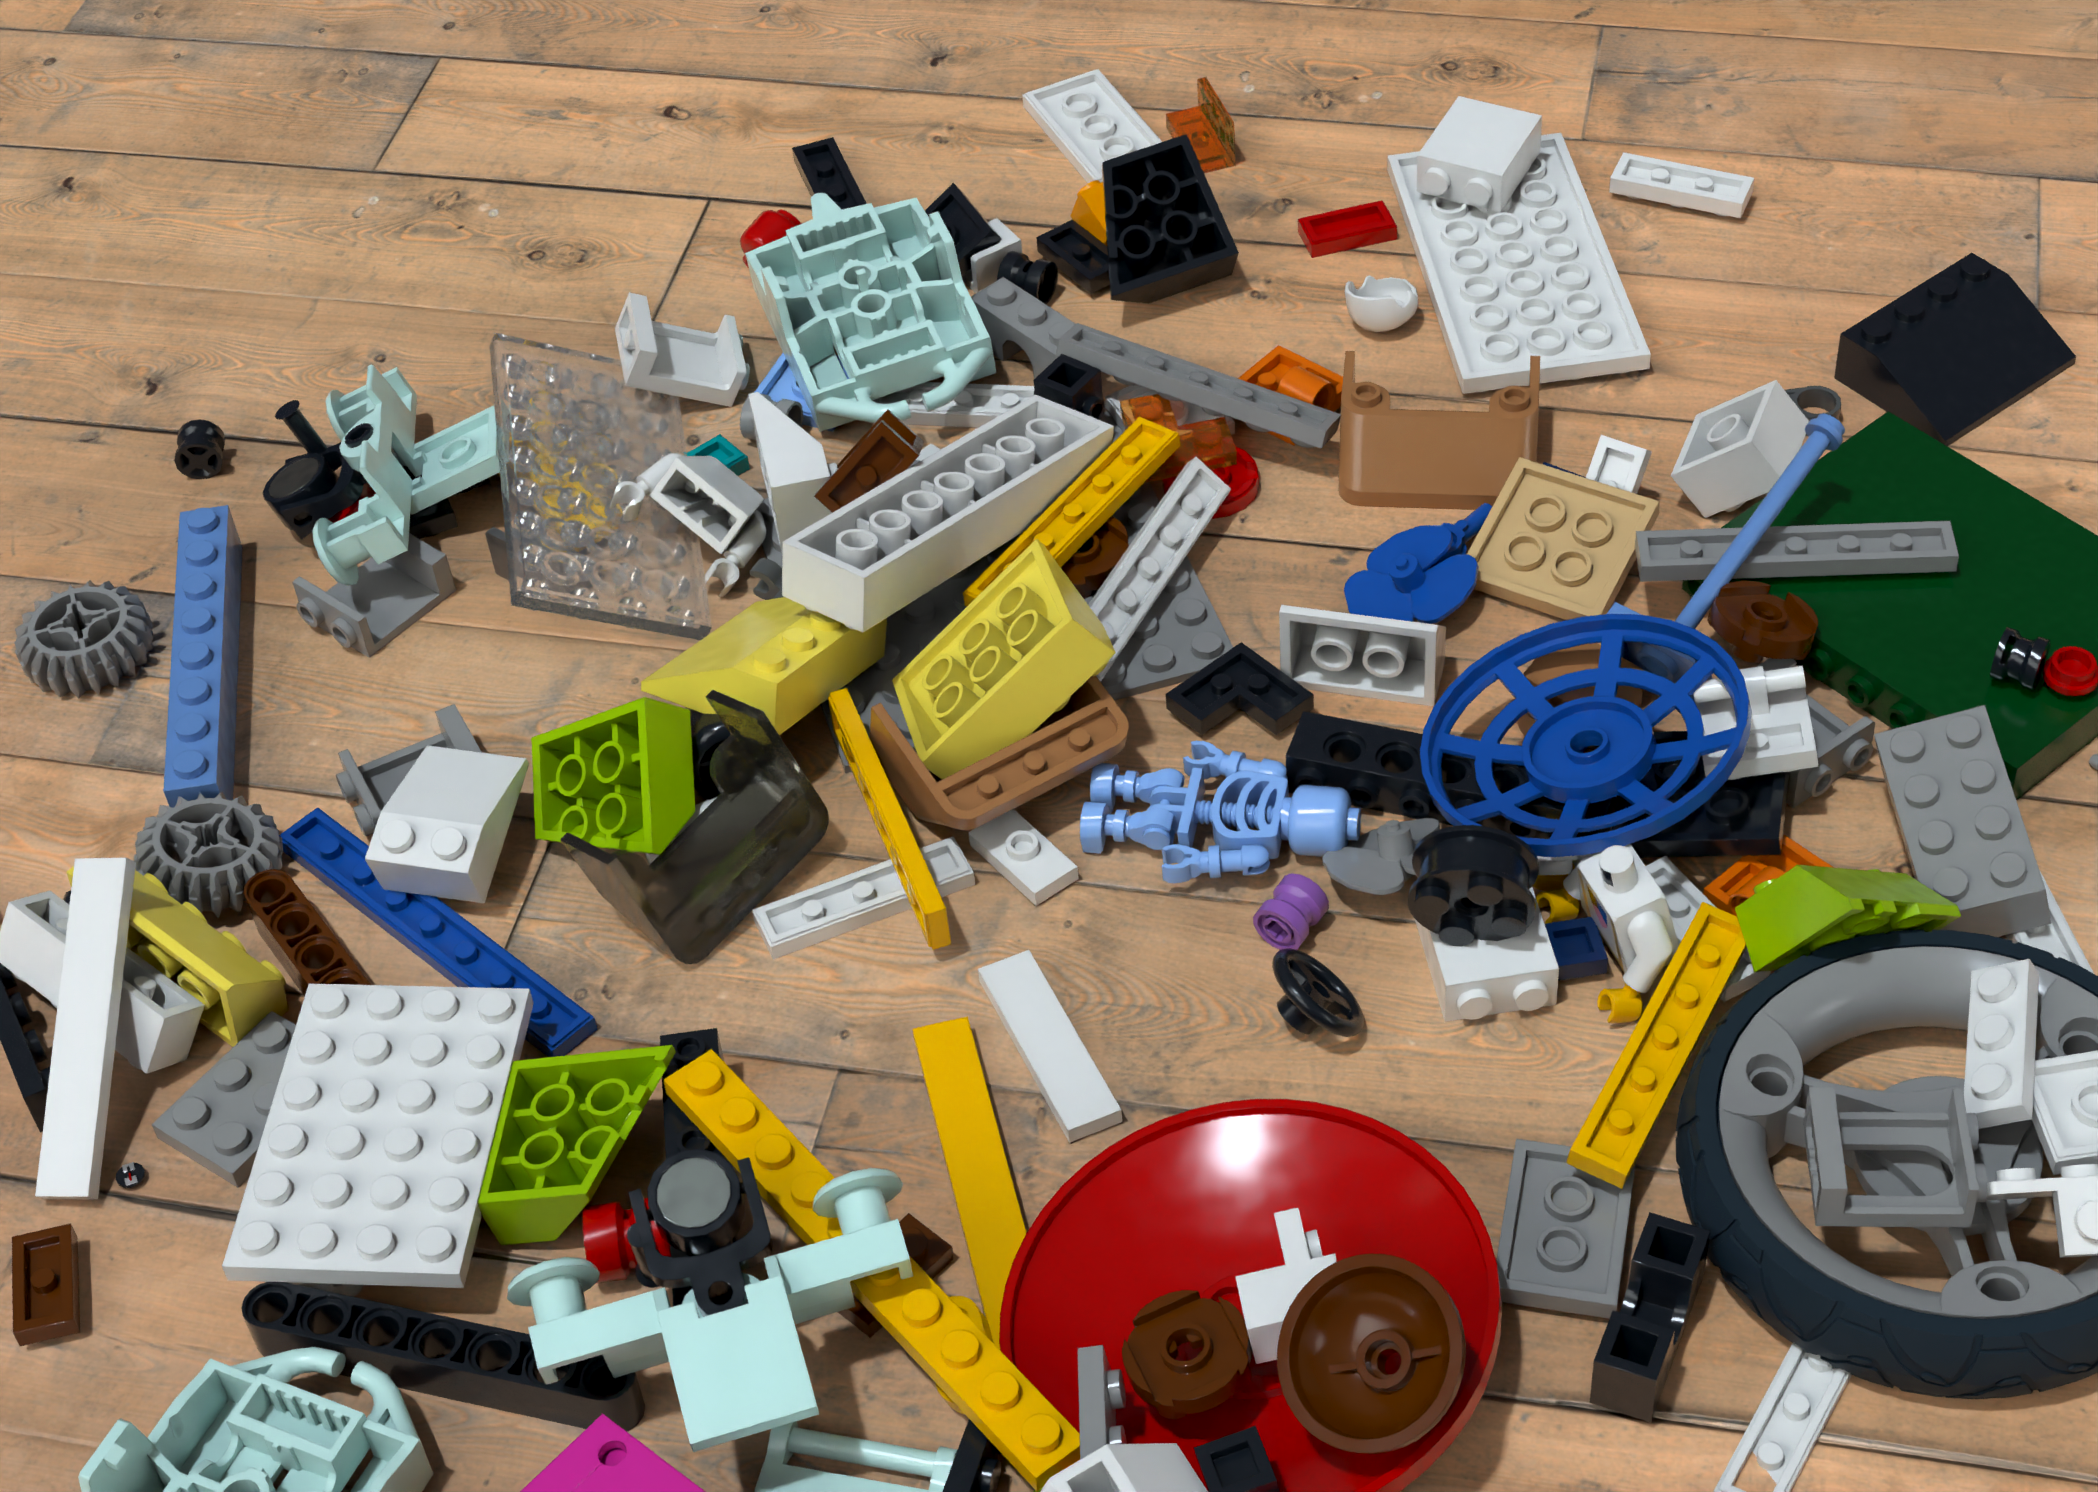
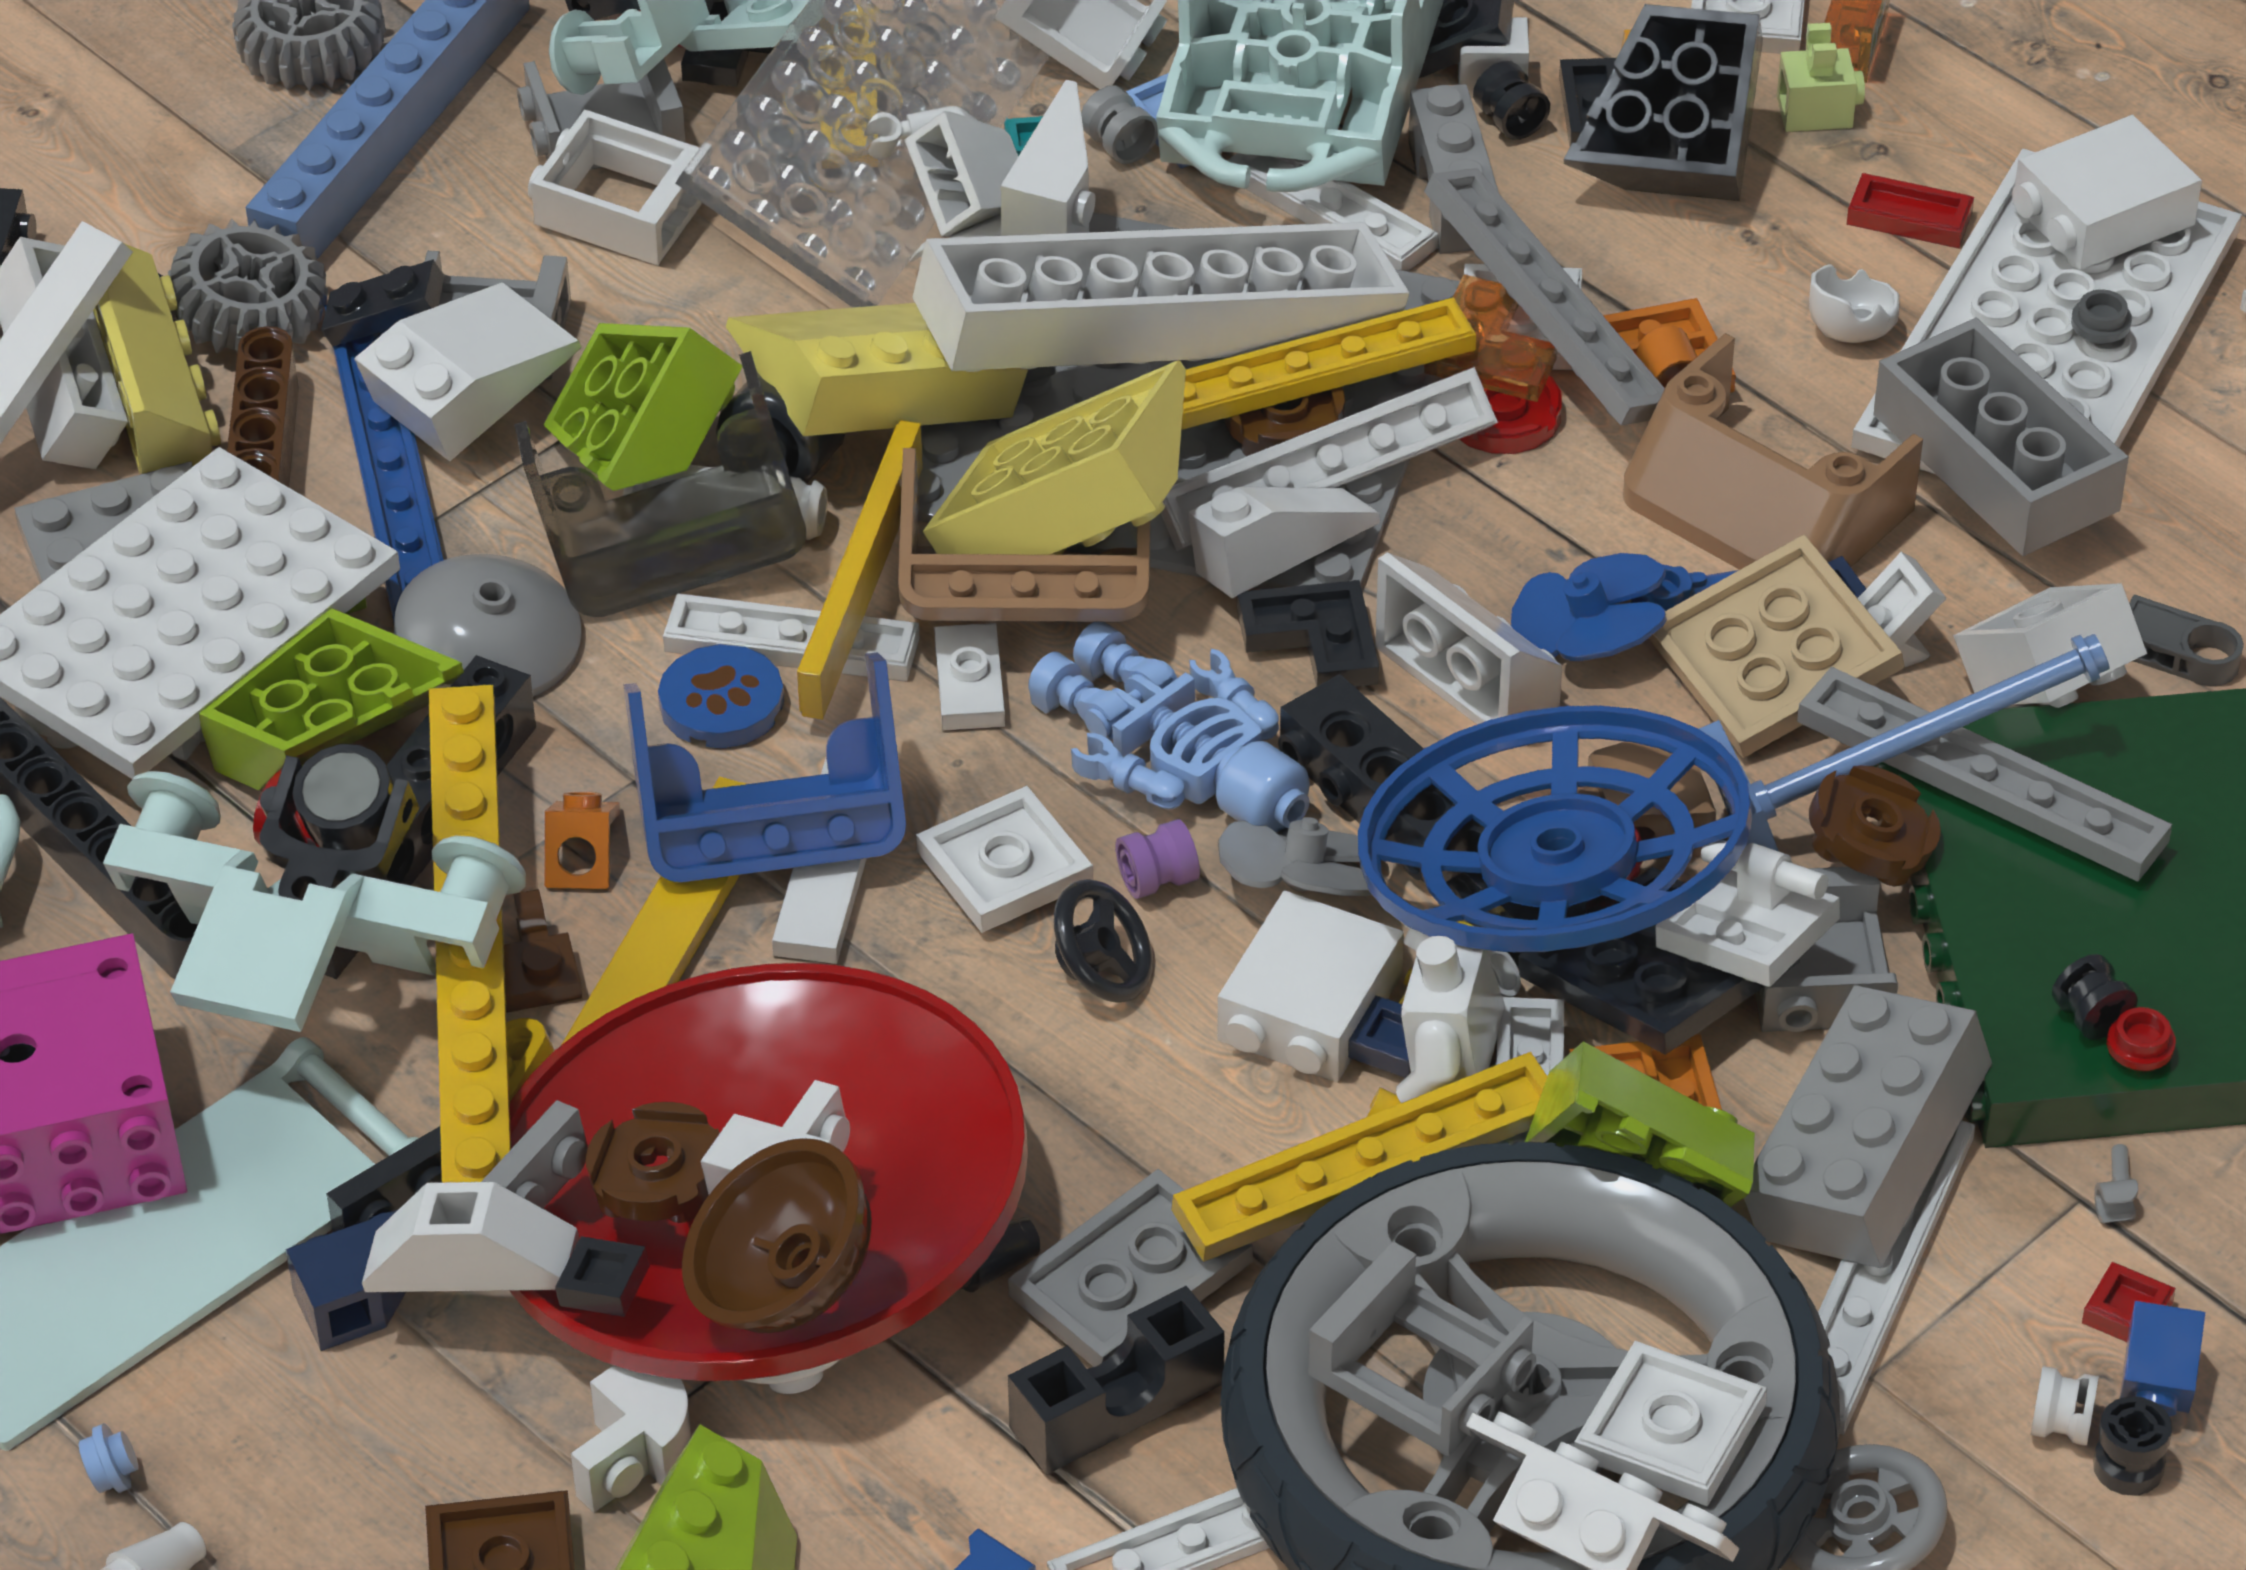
camera: 30 degrees right, 0 degrees up
(337, 809) = (380, 302): none -> black plate
(436, 607) = (626, 150): none -> white window
(623, 1001) = (493, 611): none -> light grey dish
(839, 1118) = (583, 817): none -> orange bracket
(852, 968) = (721, 695): none -> blue tile
(877, 457) = (1132, 204): reddish brown panel -> none
(1033, 1009) = (773, 823): none -> blue windscreen
(1072, 385) = (1414, 239): black brick -> none
(1156, 641) = (1267, 530): none -> white slope
(1180, 973) = (1003, 858): none -> white plate
(1226, 170) = (1818, 84): none -> yellowish green brick
(1473, 884) = (1299, 908): black wheel -> none
(1552, 231) = (2101, 317): none -> dark grey plate
(1582, 330) = (2001, 436): none -> light grey brick
(2001, 1043) = (1634, 1313): white plate -> none

